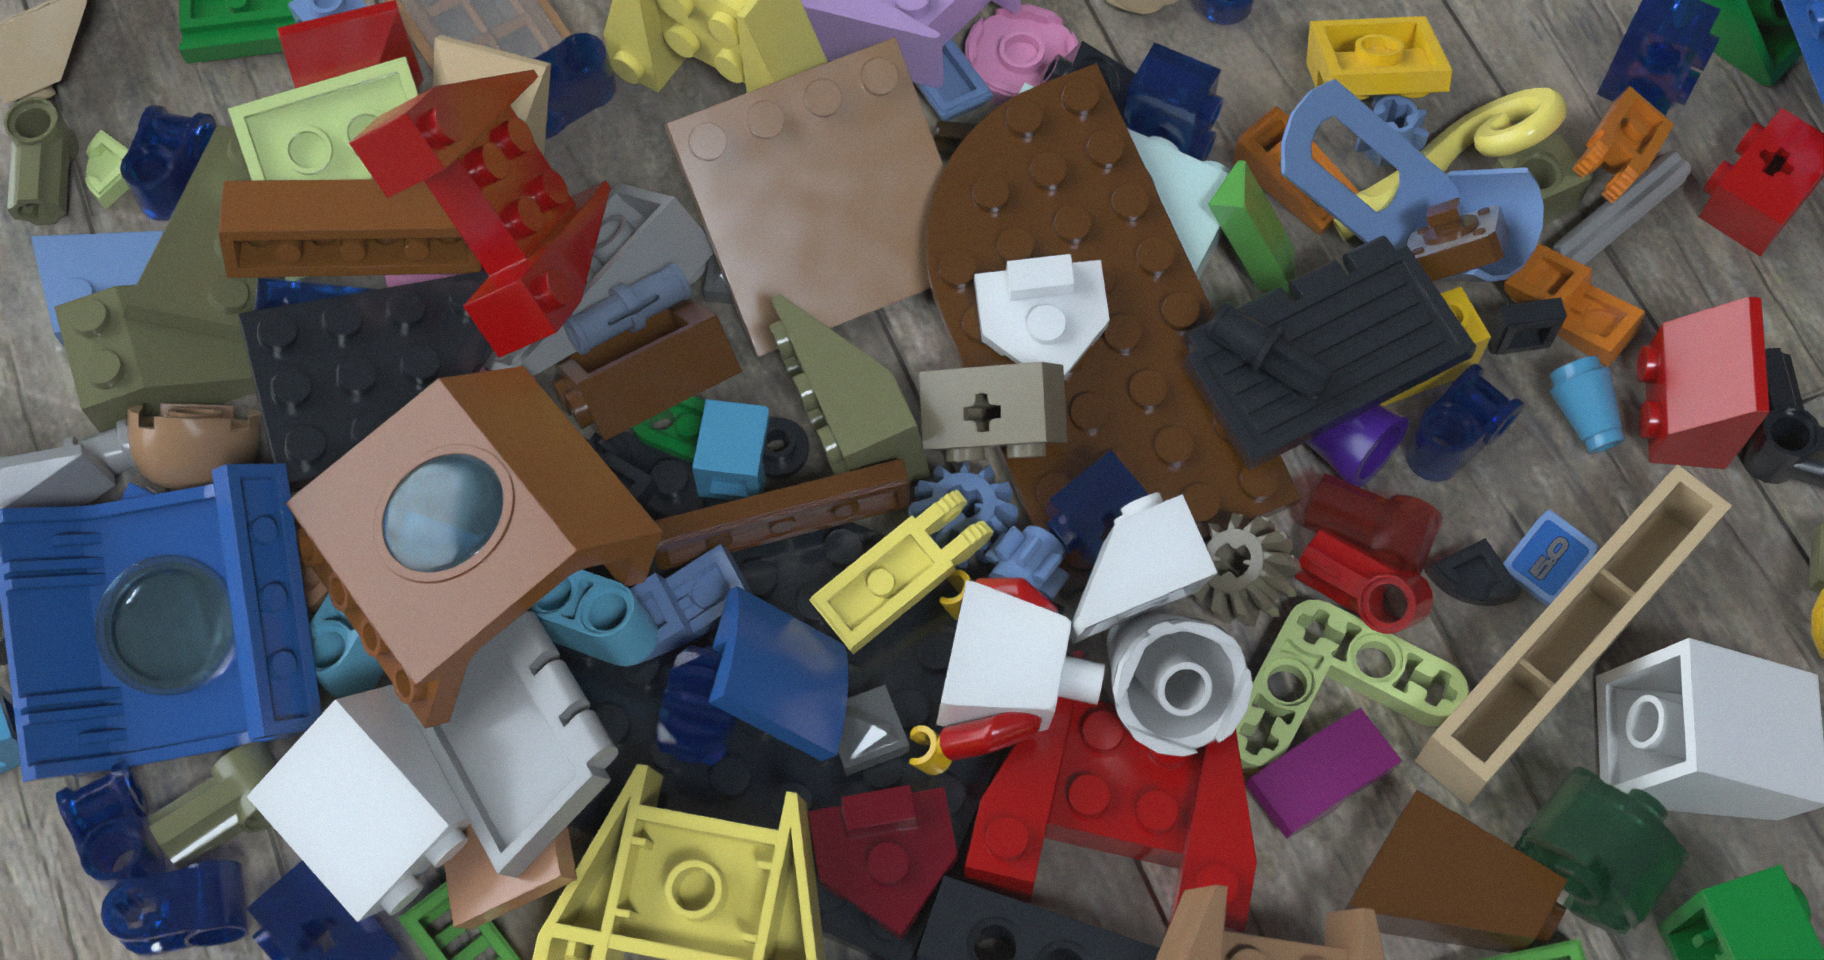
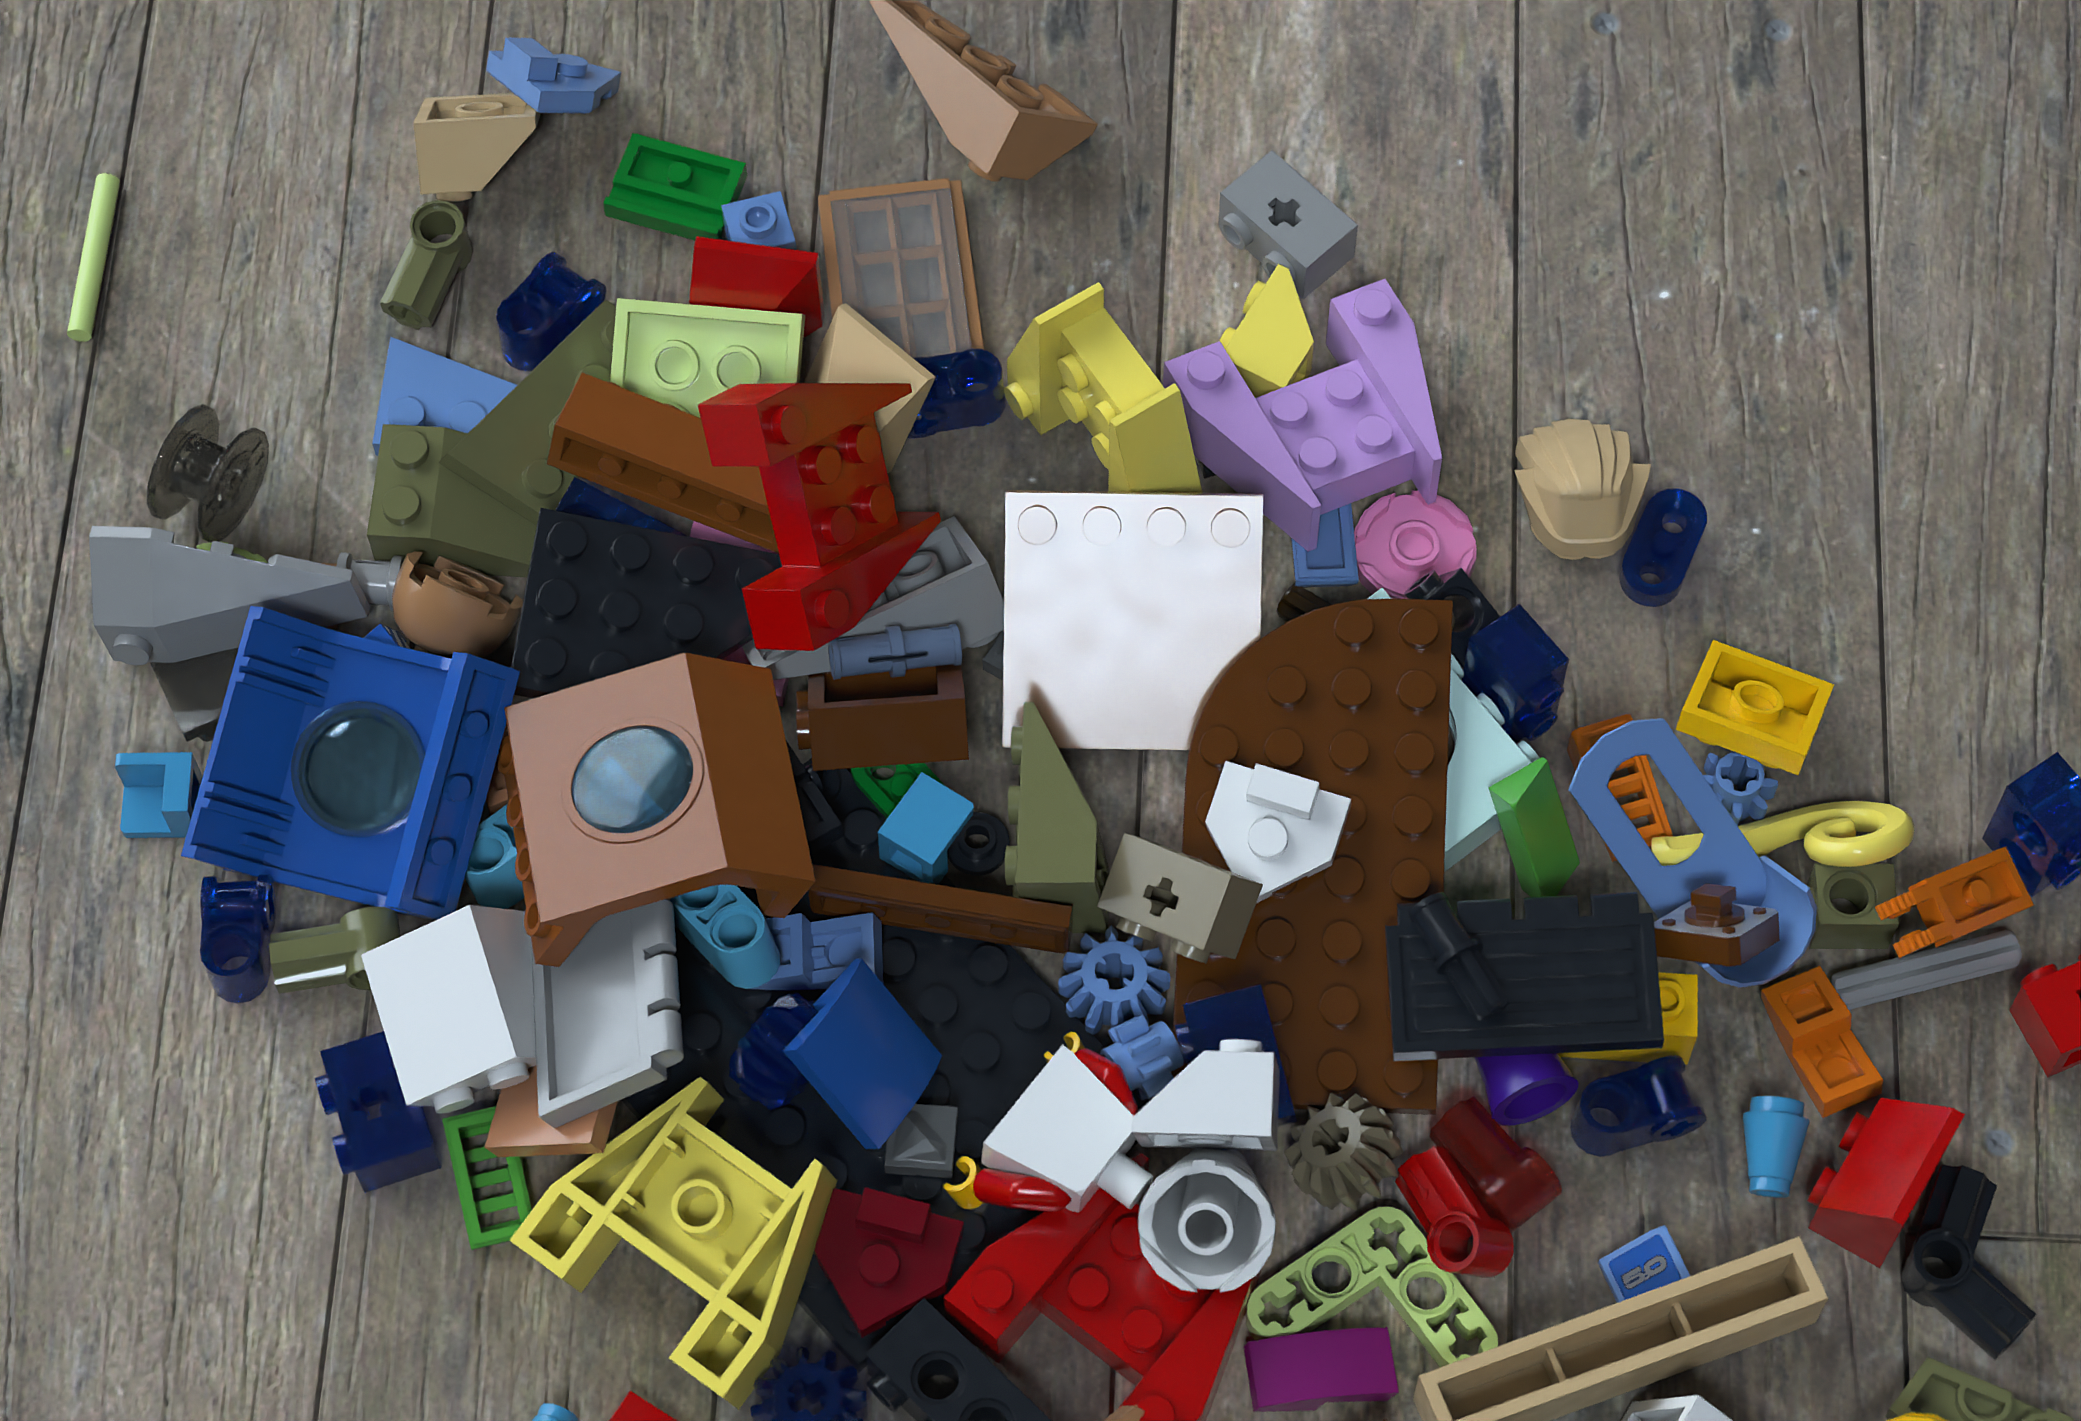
camera: 25 degrees right, 0 degrees up
(103, 169) = (485, 294): yellowish green tile -> none
(190, 906) = (274, 1030): clear blue piece -> none
(897, 573) = (1018, 1010): light yellow hinge -> none
(1475, 576) = (1569, 1257): black tile -> none
(1526, 326) = (1754, 1042): black tile -> none

